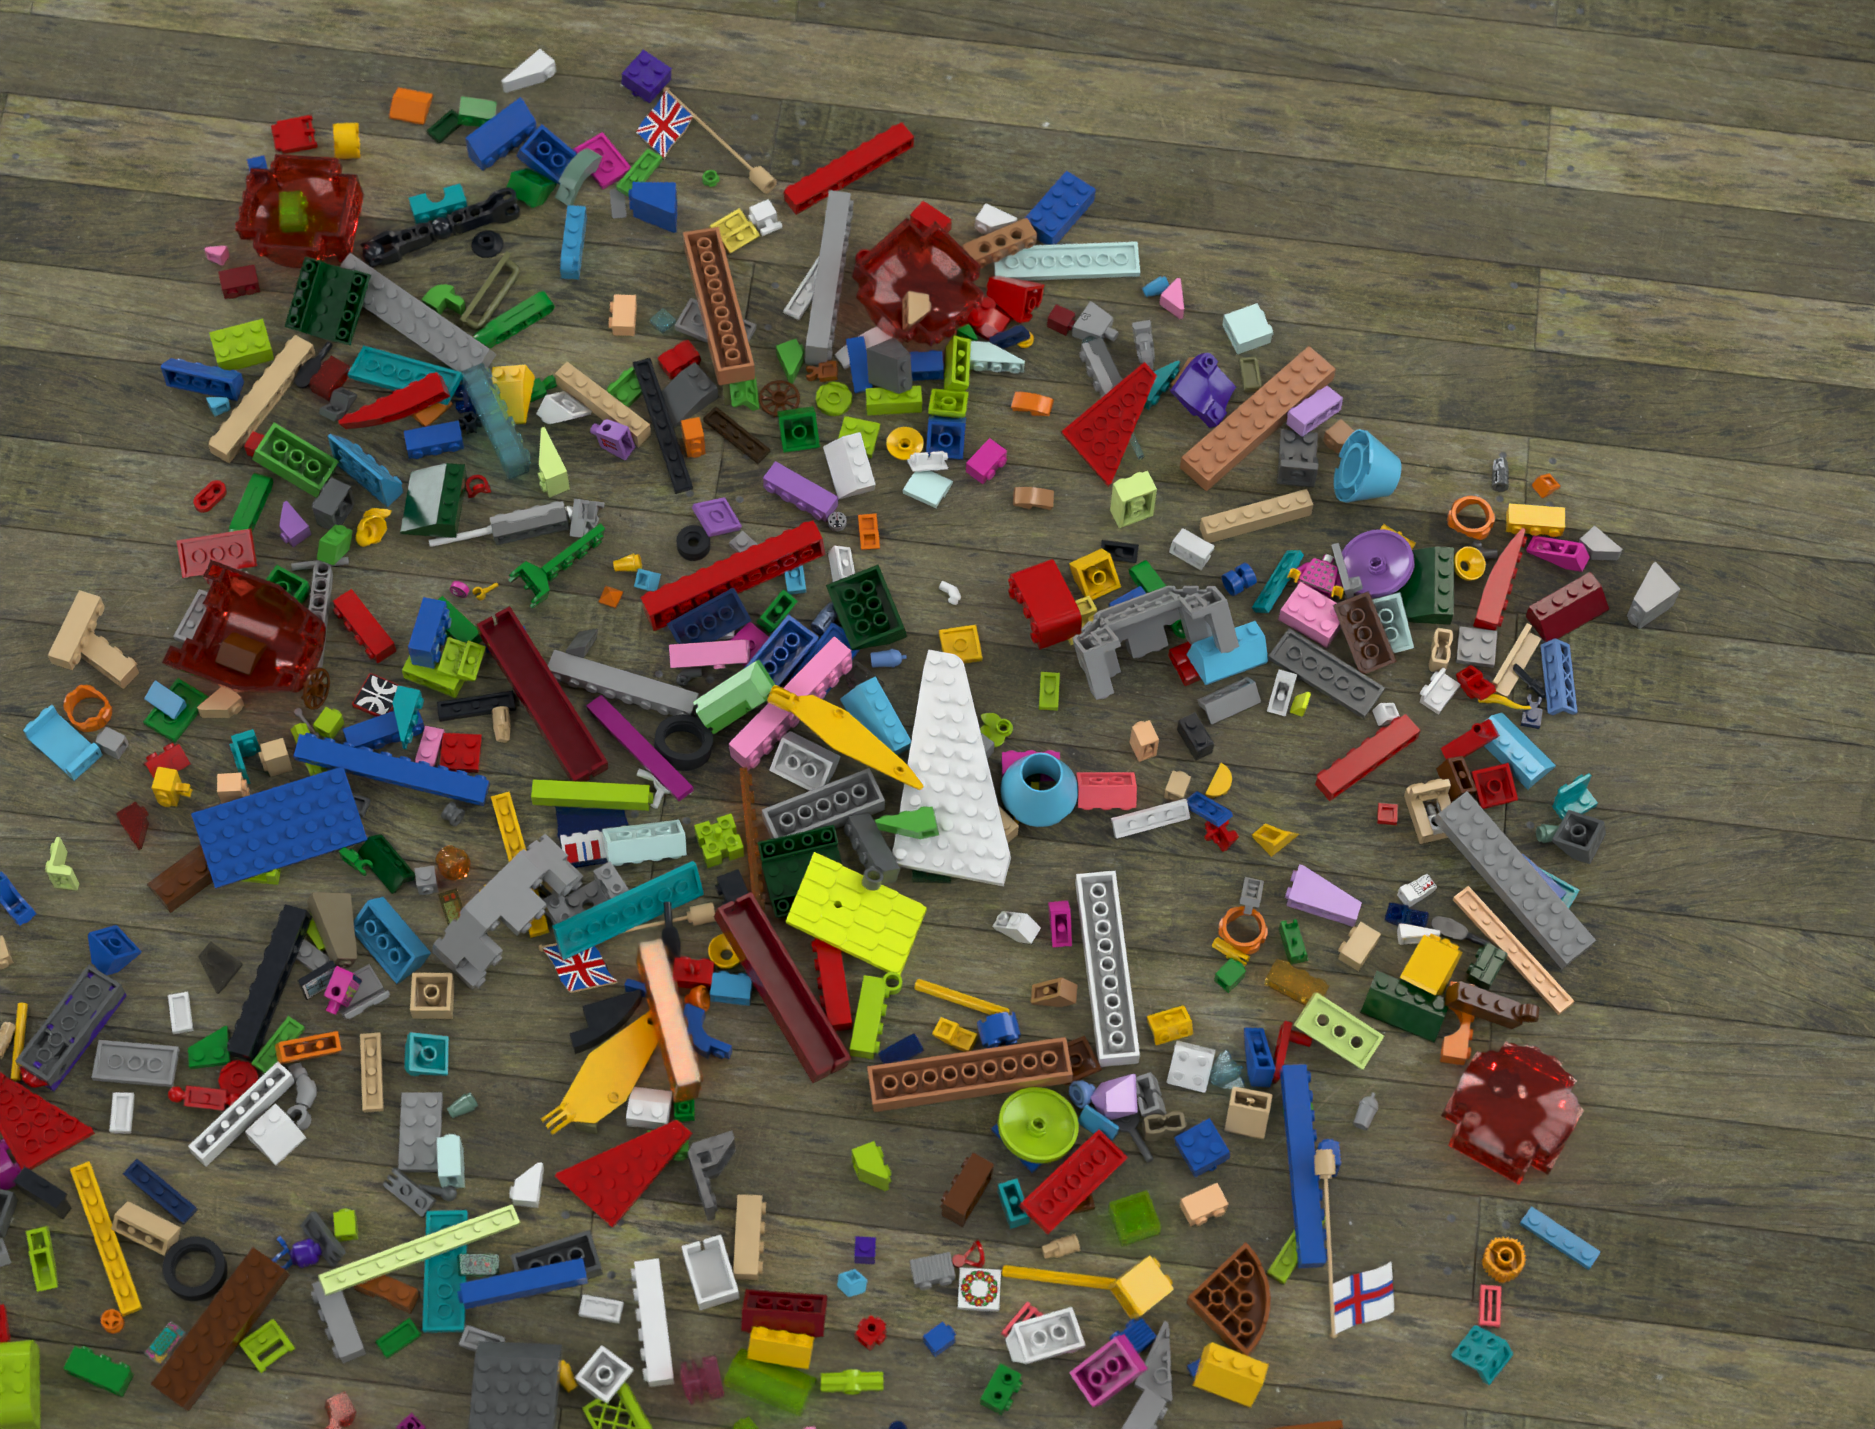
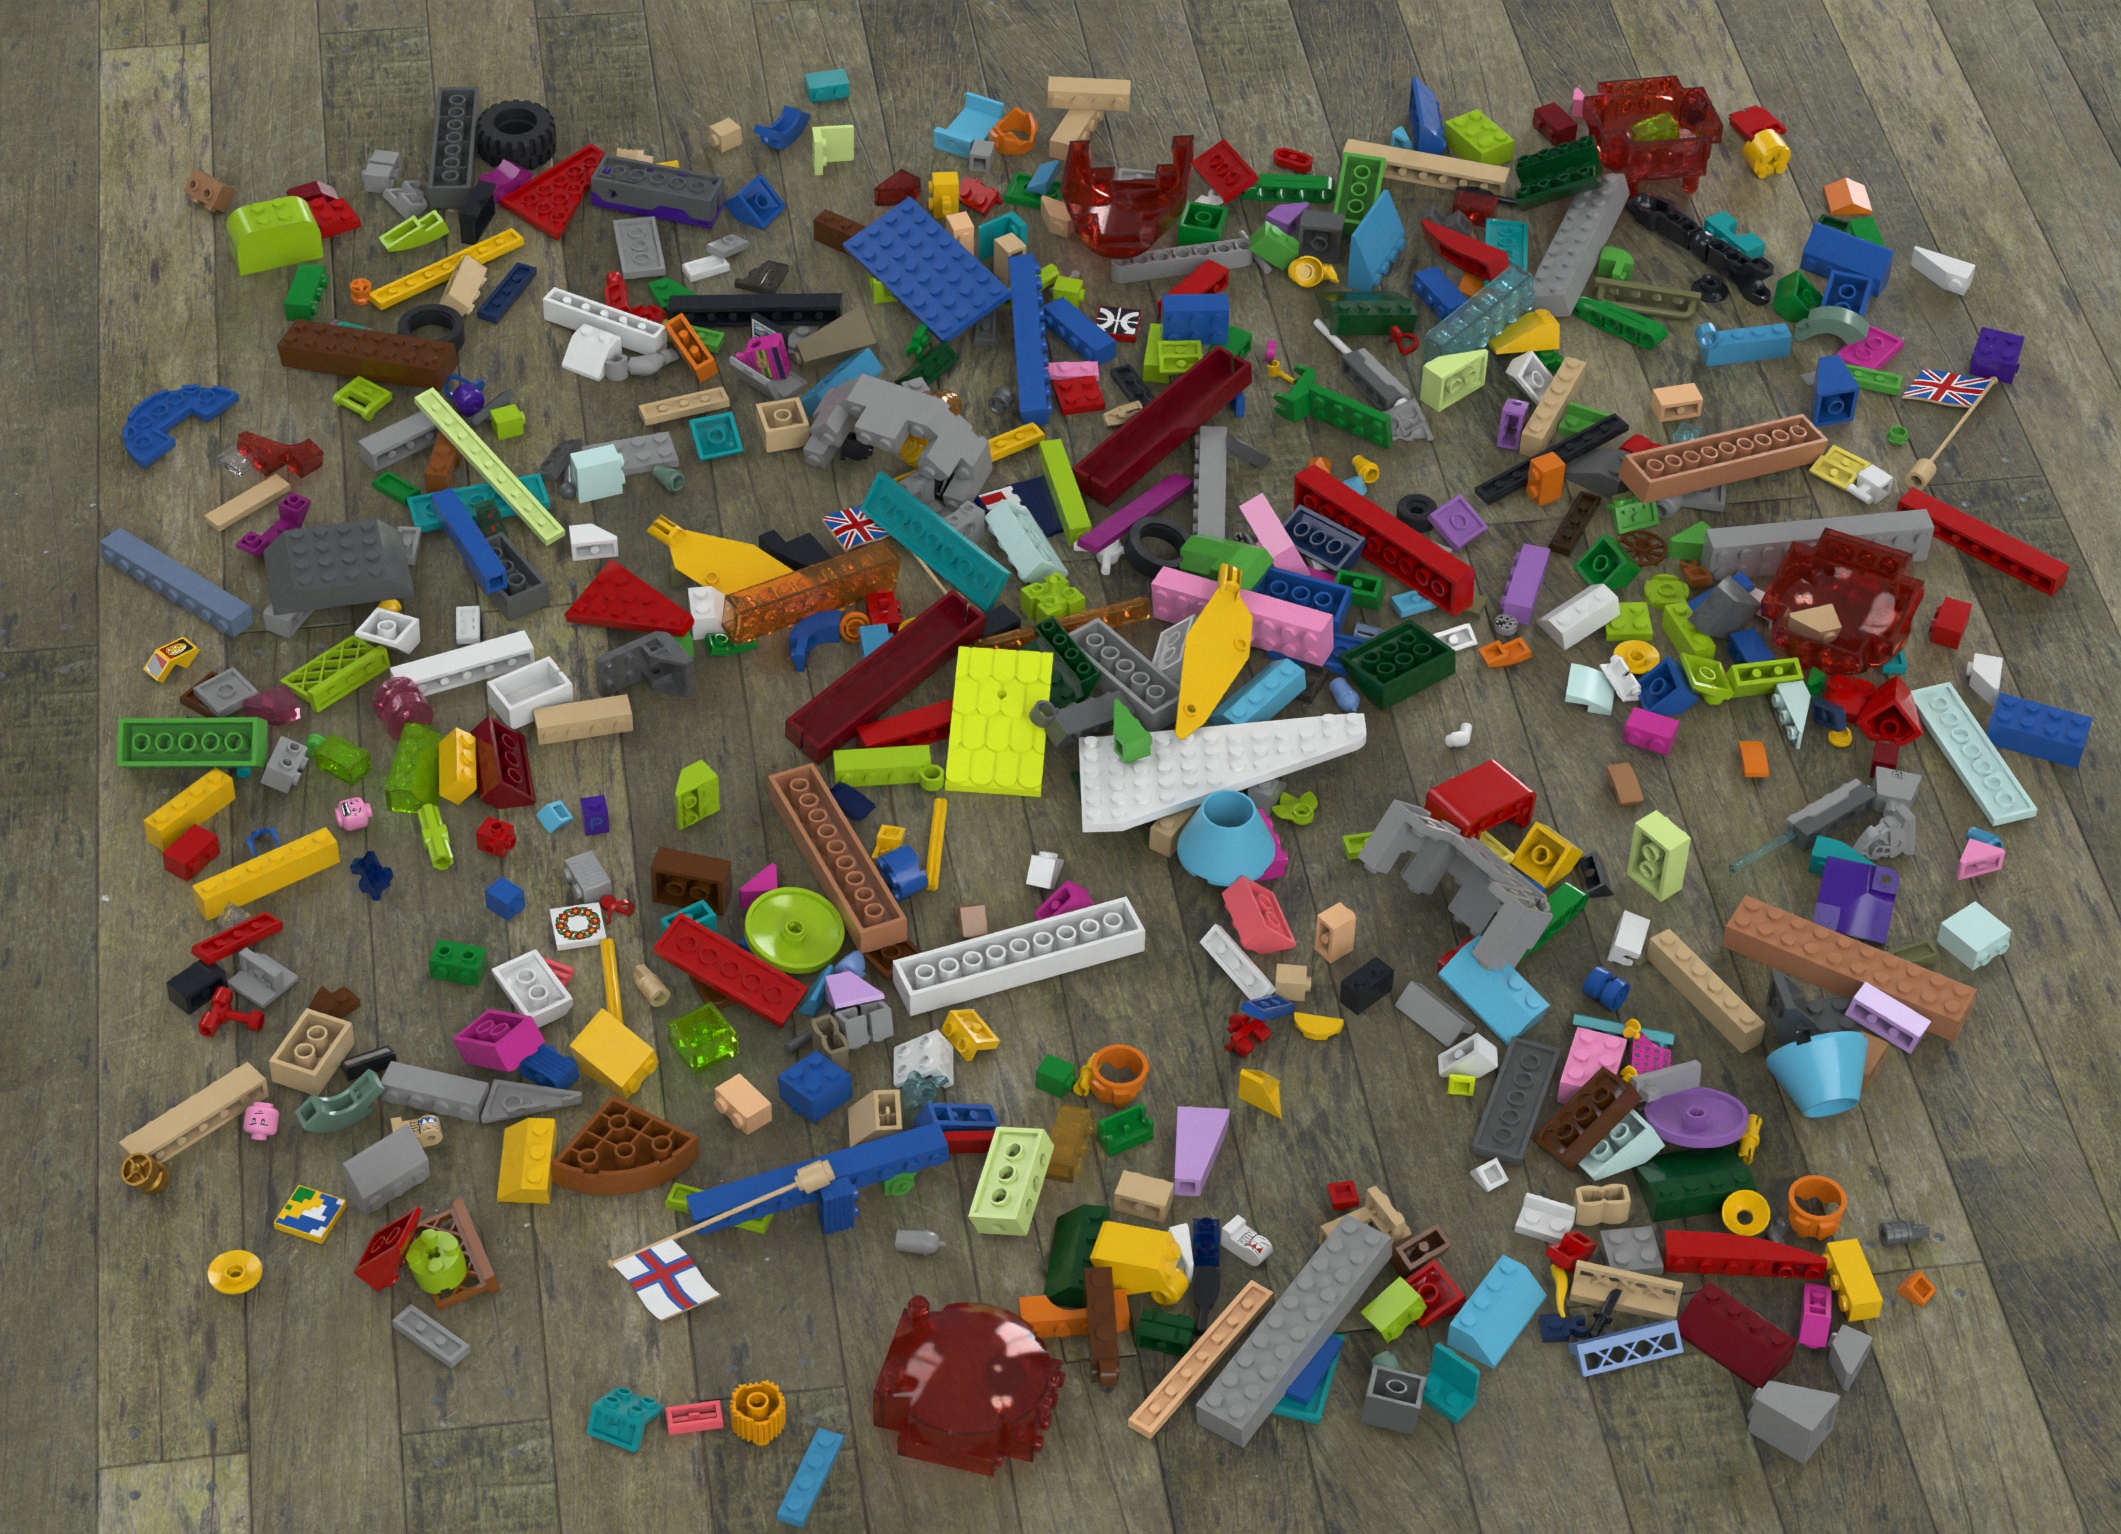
camera: 75 degrees right, 20 degrees down
(122, 1113) = (584, 253): white tile -> none
(163, 987) = (727, 246): none -> light grey plate
(240, 653) = (1119, 213): reddish brown slope -> none
(316, 688) = (1100, 267): reddish brown wheel -> none
(406, 706) = (1094, 329): teal slope -> none
(670, 935) = (921, 589): black piece -> none
(962, 642) = (1395, 759): yellow tile -> none
(981, 1137) = (760, 884): none -> dark pink slope
(1005, 236) = (1951, 678): medium nougat brick -> none
(1107, 426) = (1754, 821): red wing -> none
(1251, 894) = (1167, 1064): light grey hinge -> none
(1367, 757) = (1414, 1160): brick -> none
(1471, 741) = (1481, 1253): red piece -> none
(1506, 811) = (1394, 1310): none -> lime brick

